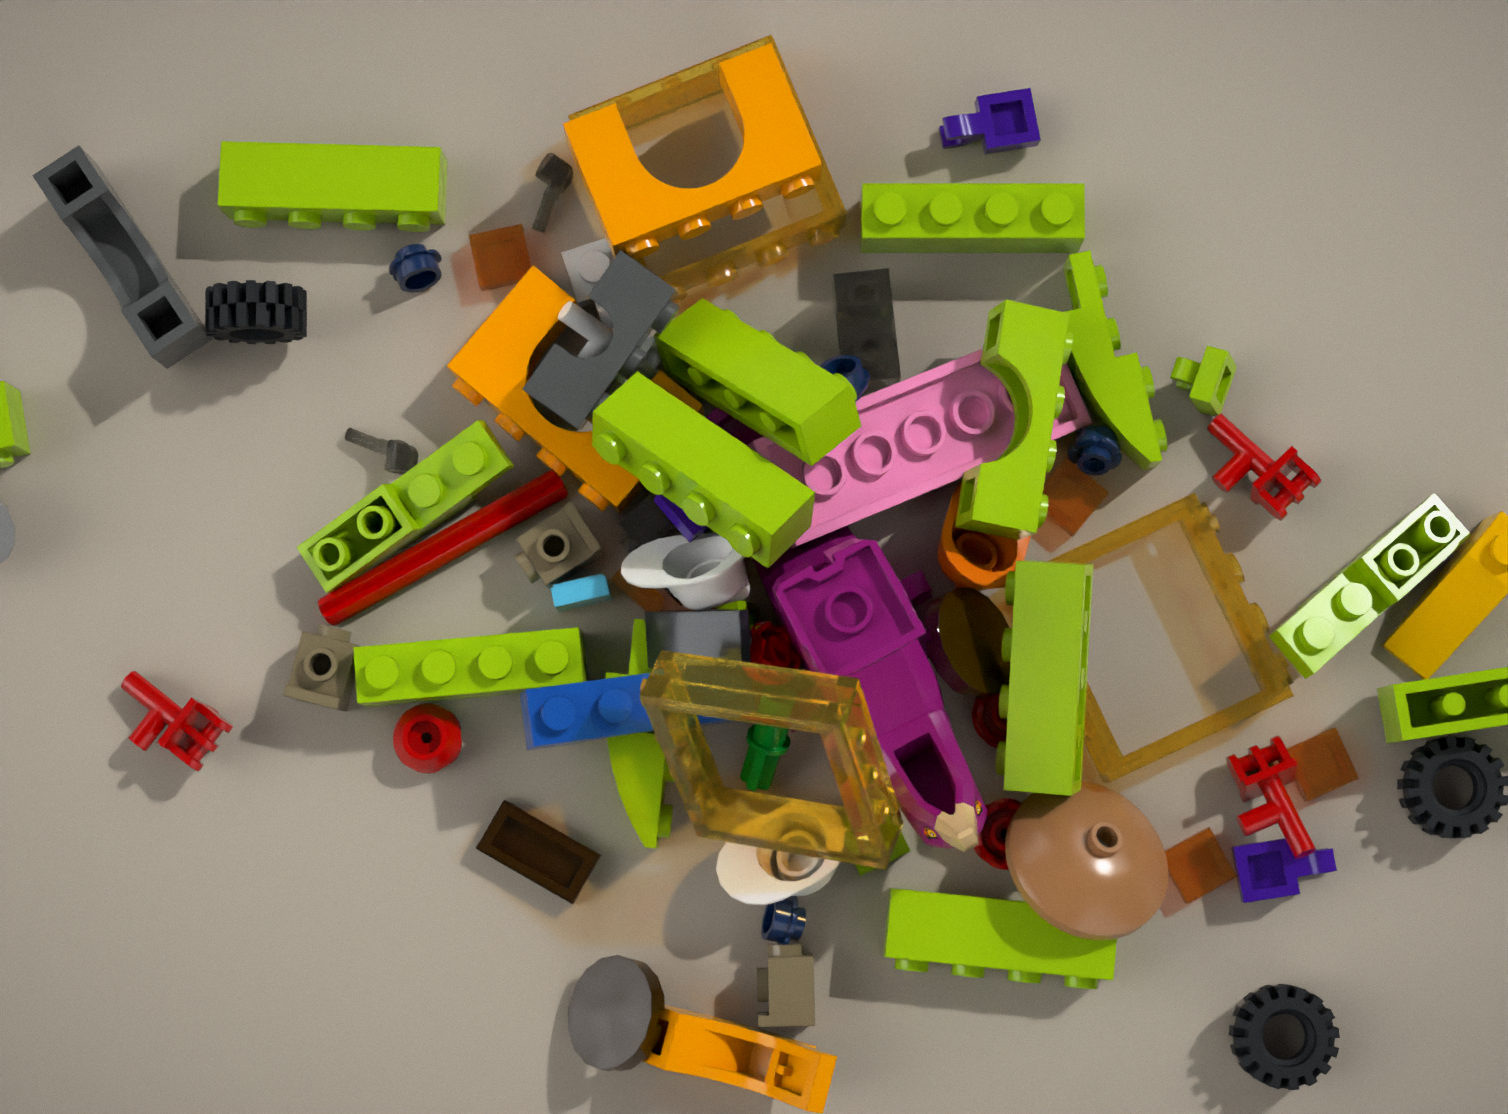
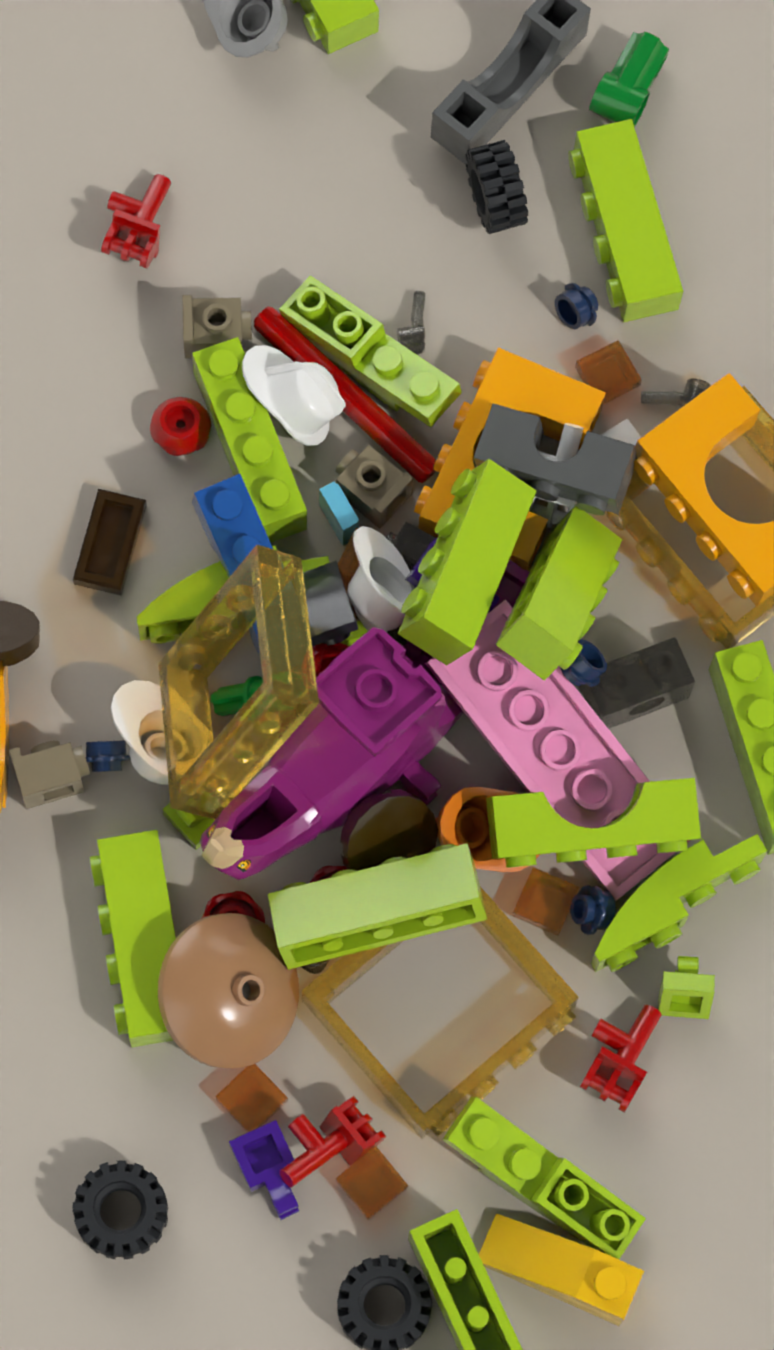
camera: 65 degrees right, 10 degrees down
(177, 138) = (626, 89): none -> green piece
(434, 604) = (294, 392): none -> white piece

